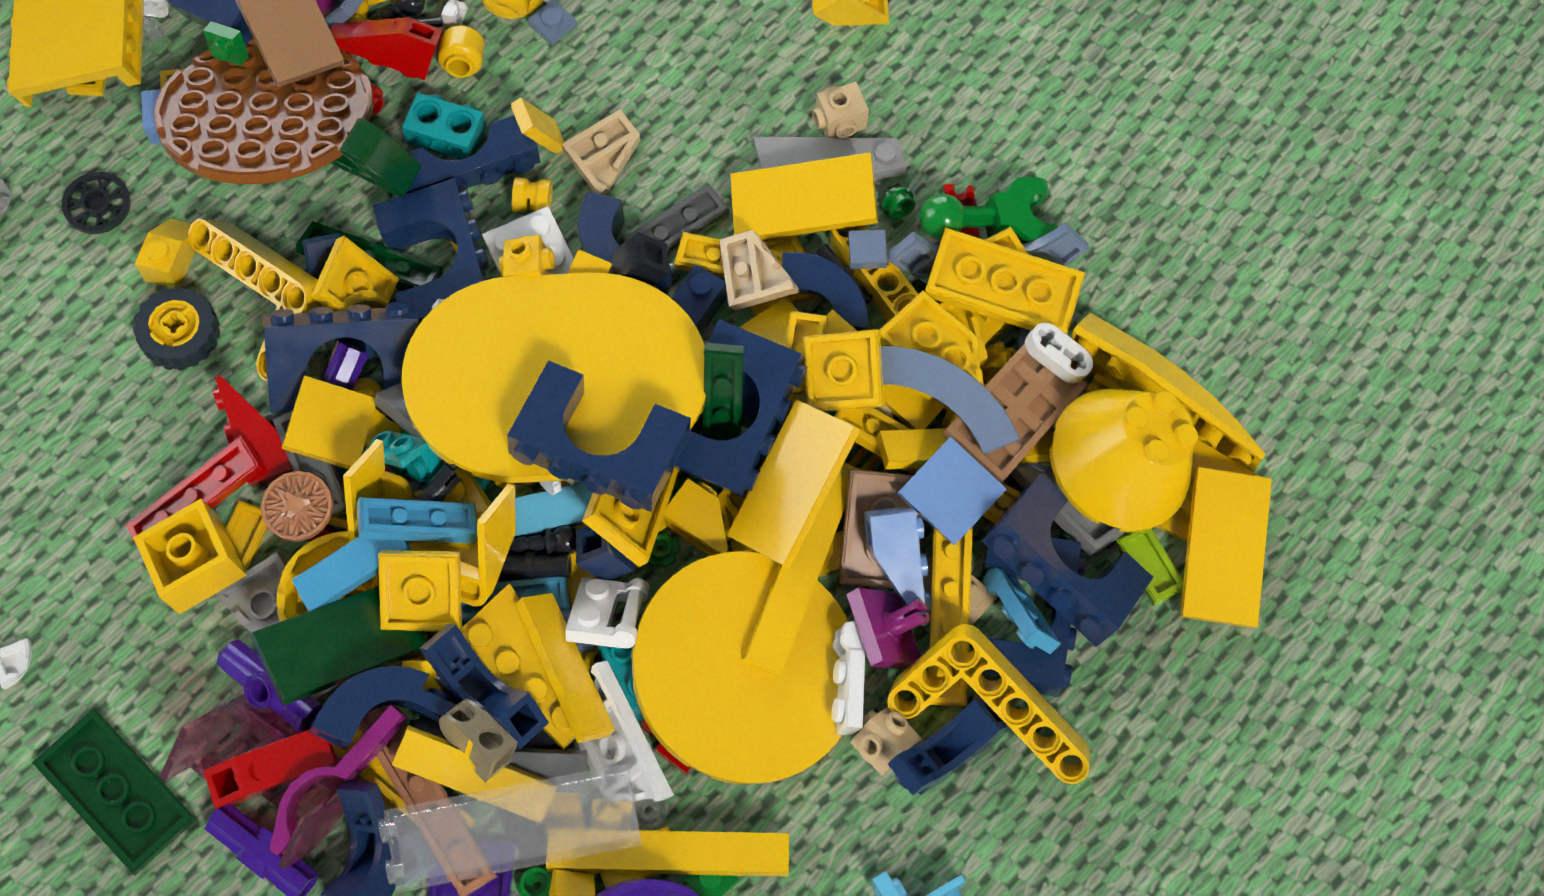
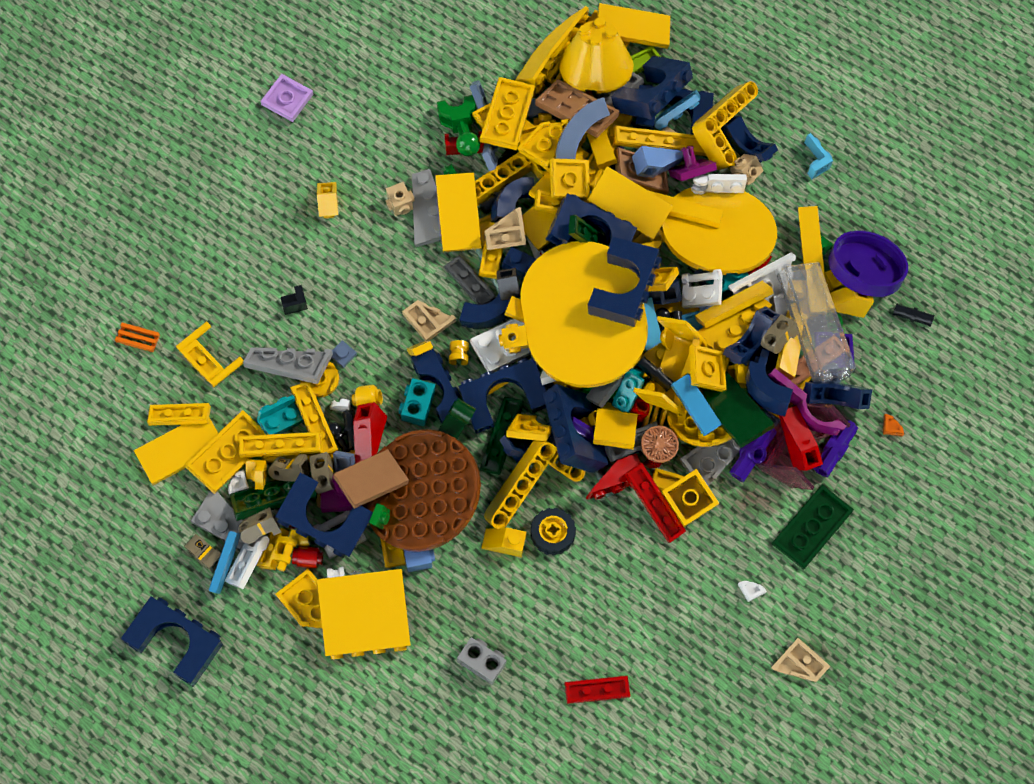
camera: 95 degrees left, 0 degrees up
(96, 202) = (474, 591): black wheel -> none
(416, 520) = (672, 371): dark azure tile -> none
(867, 249) = (488, 179): sand blue tile -> none
(951, 491) = (626, 133): medium blue tile -> none
(1059, 353) = (548, 89): white beam -> none

